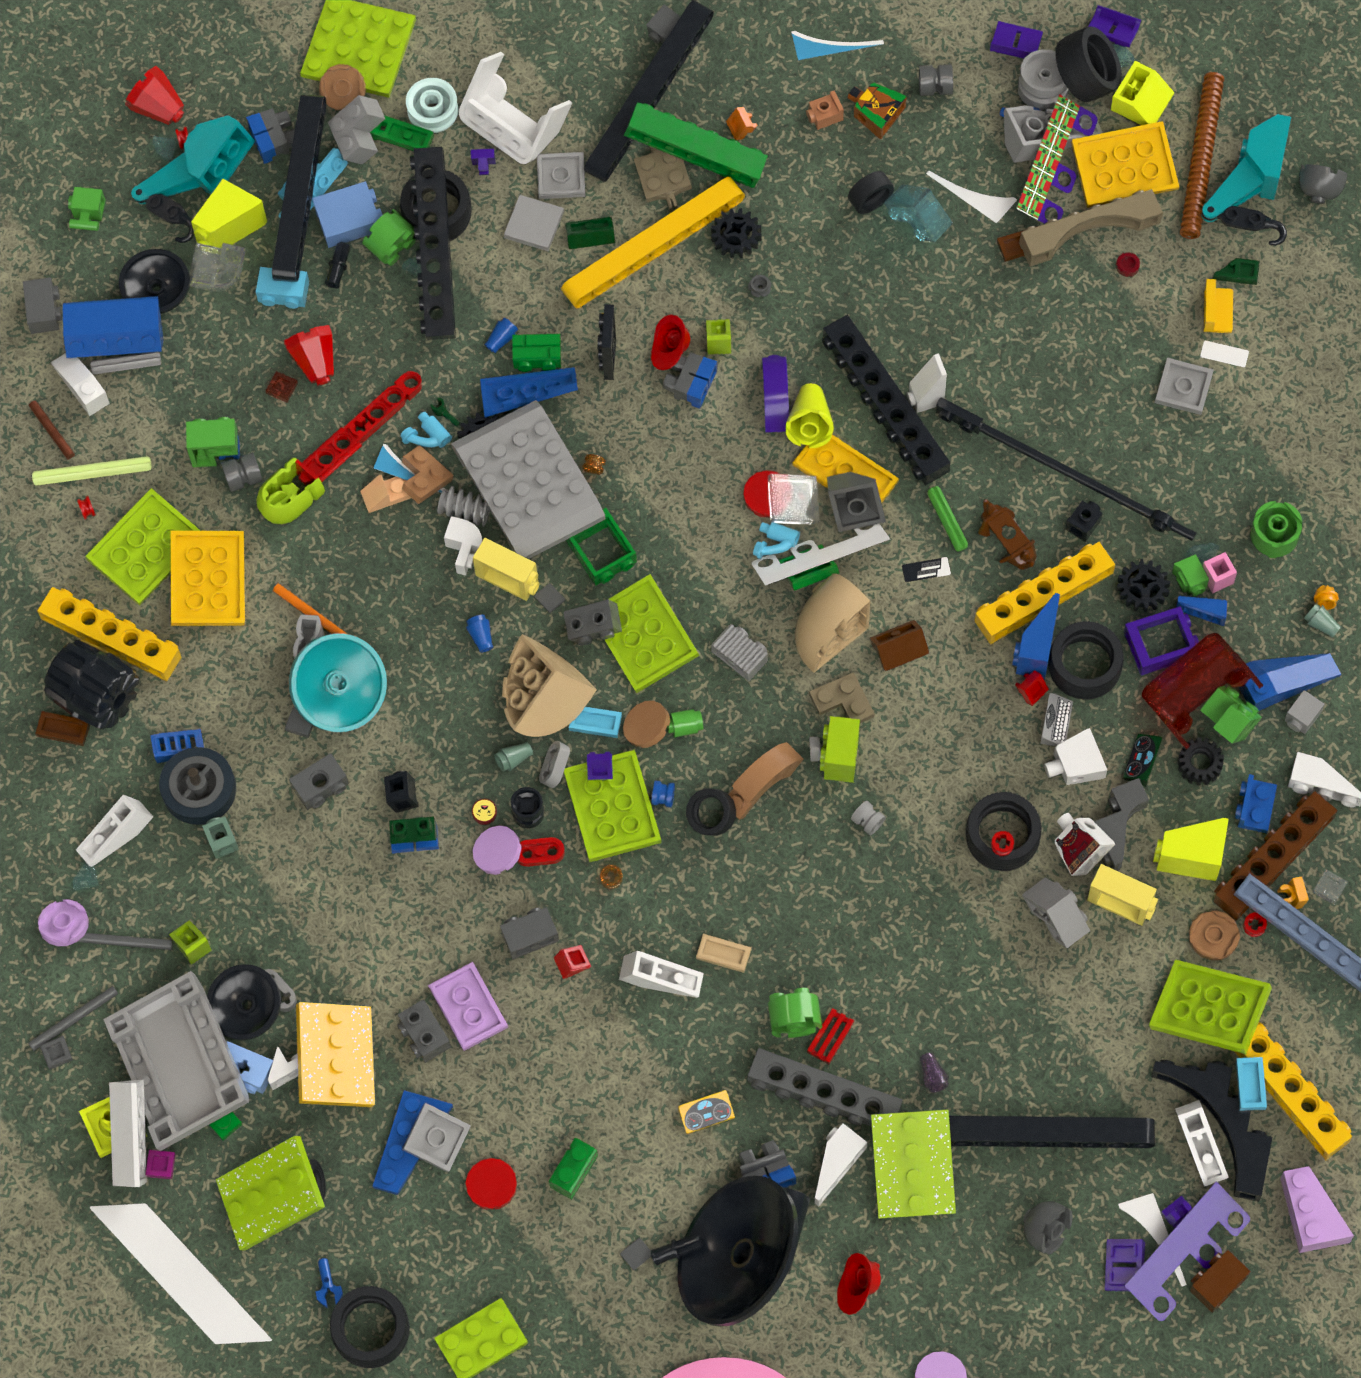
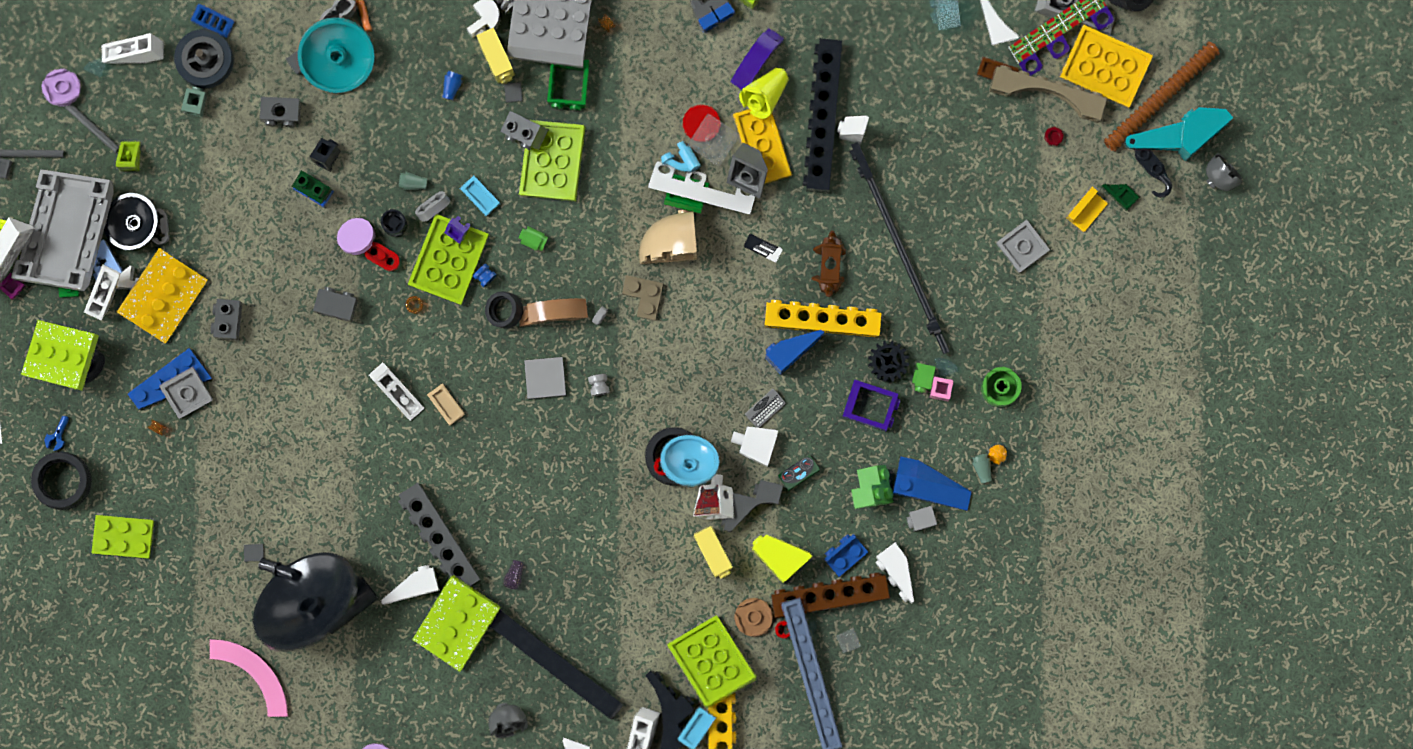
camera: 35 degrees right, 15 degrees up
(269, 1091) = (102, 292): none -> white slope
(431, 1197) = (156, 427): none -> clear orange bush
(468, 1006) = (266, 322): lavender tile -> none
(484, 811) = (368, 204): light yellow tile -> none
(491, 1184) = (199, 445): red tile -> none
(542, 690) = (460, 153): tan brick -> none
(571, 961) = (350, 341): red slope -> none
(573, 1168) = (252, 473): green brick -> none
(646, 724) = (508, 222): medium nougat tile -> none
(706, 1112) = (359, 497): slope -> none
(740, 651) = (602, 217): light grey brick -> none
(773, 1163) = (375, 562): dark grey hips -> none
(794, 1013) = (456, 477): bright green brick -> none
(806, 852) = (545, 378): none -> light grey tile
(840, 749) = (613, 329): lime brick -> none
(840, 1018) = (485, 499): red tile -> none
(857, 1282) = (368, 670): red piece -> none
(900, 645) = (706, 286): reddish brown panel -> none
(947, 519) = (801, 224): bright green axle -> none
(1027, 812) = (692, 453): none -> medium azure dish
(1032, 687) = (766, 376): red tile -> none
(1058, 911) = (666, 532): light grey brick -> none
(1076, 686) = (812, 360): black tyre -> none
(1081, 526) = (881, 295): black brick -> none
(1142, 95) = (1154, 27): neon yellow slope -> none
(1193, 681) = (864, 447): clear red windscreen -> none
(1200, 747) = (832, 513): black tyre -> none
(1208, 609) = (918, 409): blue slope -> none
(1224, 353) = (1067, 243): white sticker -> none
(1296, 892) = (823, 629): light orange tile -> none

